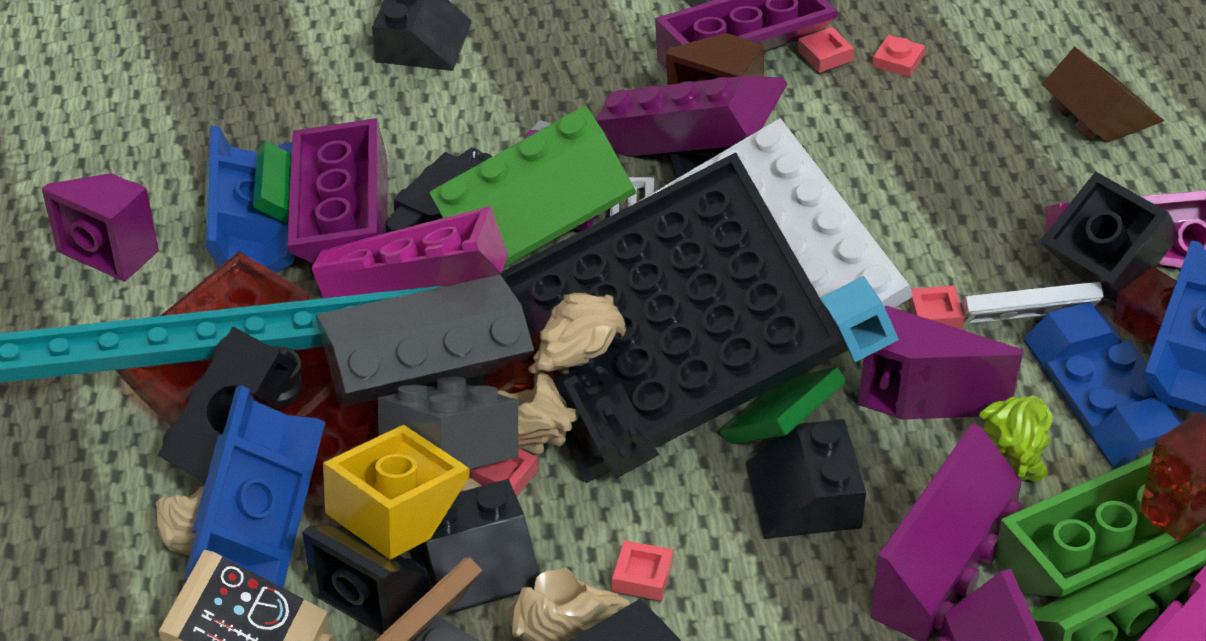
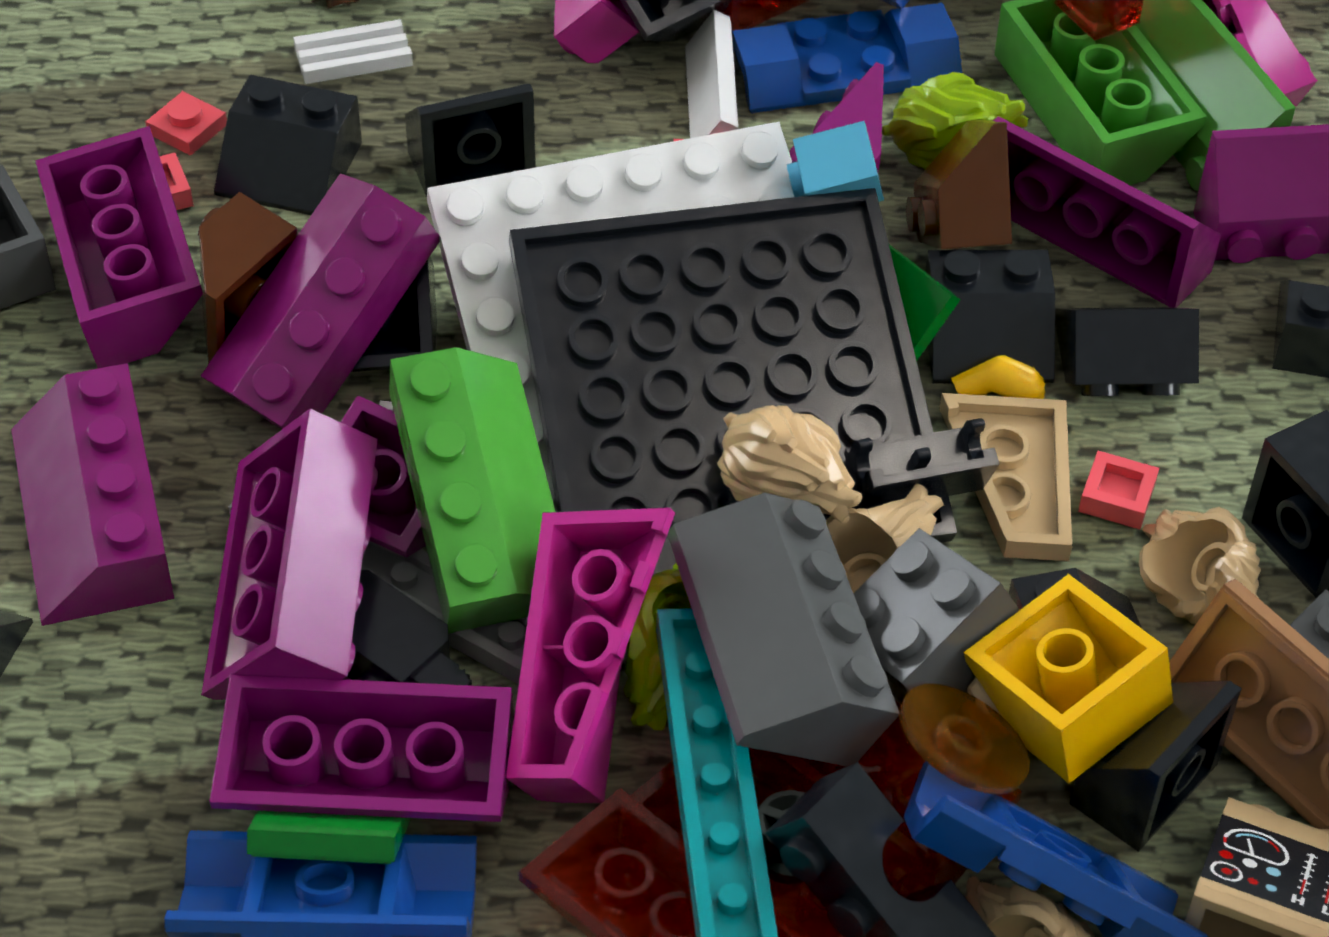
camera: 85 degrees left, 5 degrees up
(329, 416) = (964, 739): none -> clear orange dish
(458, 126) = (294, 556): none -> magenta slope
(545, 72) = (90, 499): none -> magenta slope
(662, 511) = (1030, 488): none -> tan wing
(745, 498) = (1002, 376): none -> yellow arm
(801, 567) = (1129, 347): none -> black slope
(879, 97) = (287, 143): none -> black slope
(908, 435) = (965, 191): none -> reddish brown slope
(910, 176) = (472, 136): none -> black slope
(1011, 116) = (353, 51): none -> white tile

